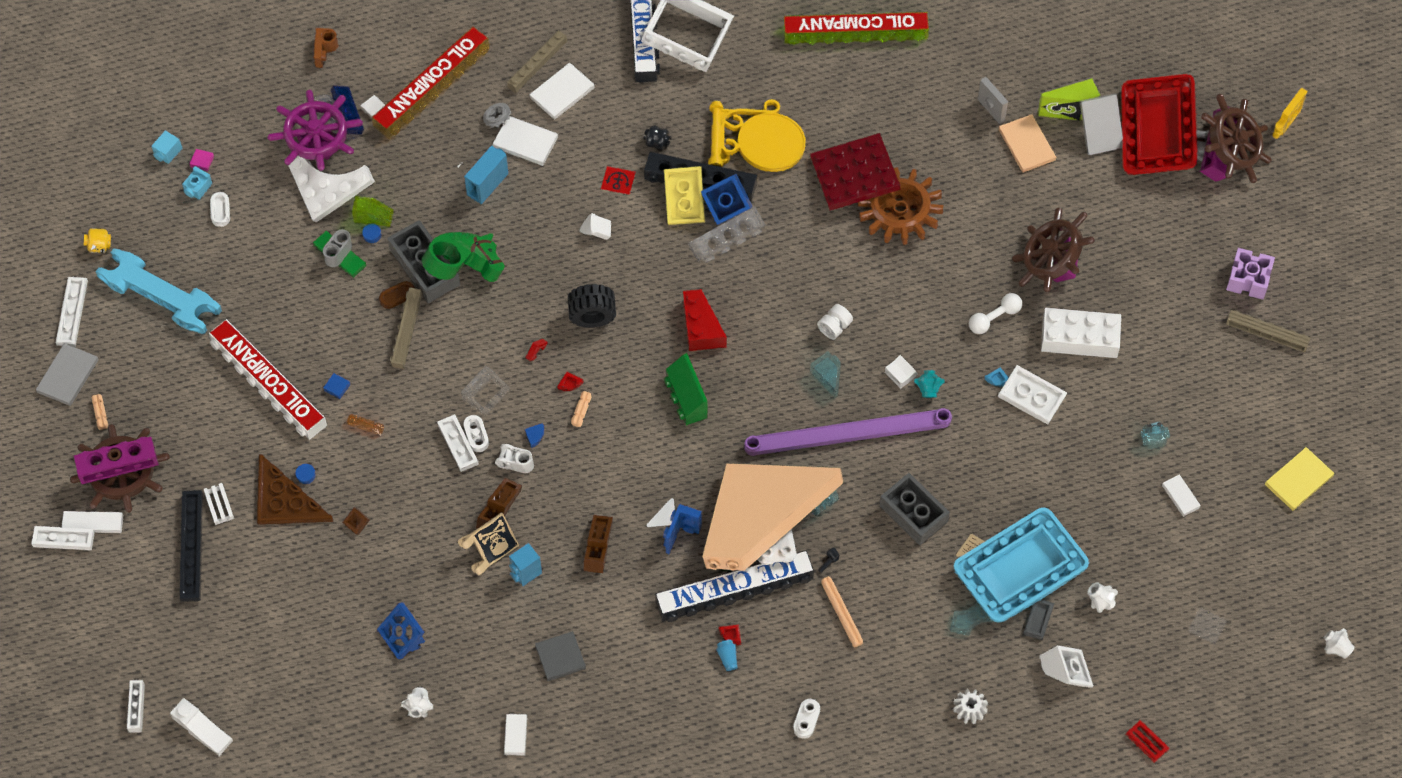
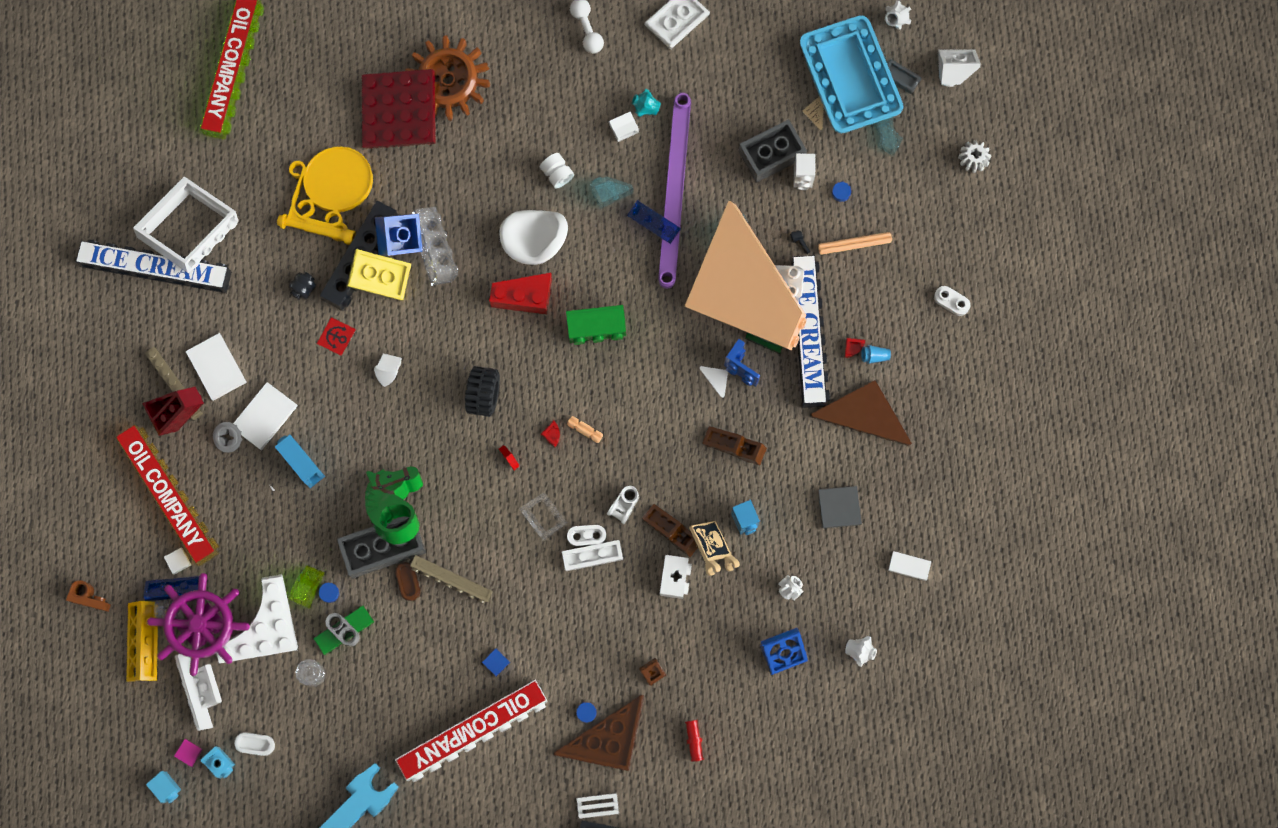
camera: 75 degrees left, 15 degrees up
(255, 153) = (200, 691): none -> white bracket
(289, 98) = (145, 642): none -> yellow fence
(292, 234) = (310, 673): none -> clear wheel
(297, 572) = (694, 740): none -> red pin
(365, 424) = (547, 642): clear orange axle -> none
(445, 513) = (671, 566): none -> white brick
(466, 624) = (790, 587): none -> white gear
(507, 62) = (173, 409): none -> dark red wedge
(535, 434) = (601, 479): blue tile -> none
(665, 660) = (865, 412): none -> reddish brown tile
(761, 314) = (533, 235): none -> white piece
(806, 417) = (653, 222): none -> clear blue plate
(893, 587) = (841, 191): none -> blue tile
(900, 541) = (804, 171): none -> white brick
(997, 377) = (651, 43): dark azure tile -> none
(1142, 746) = (1023, 27): red tile -> none

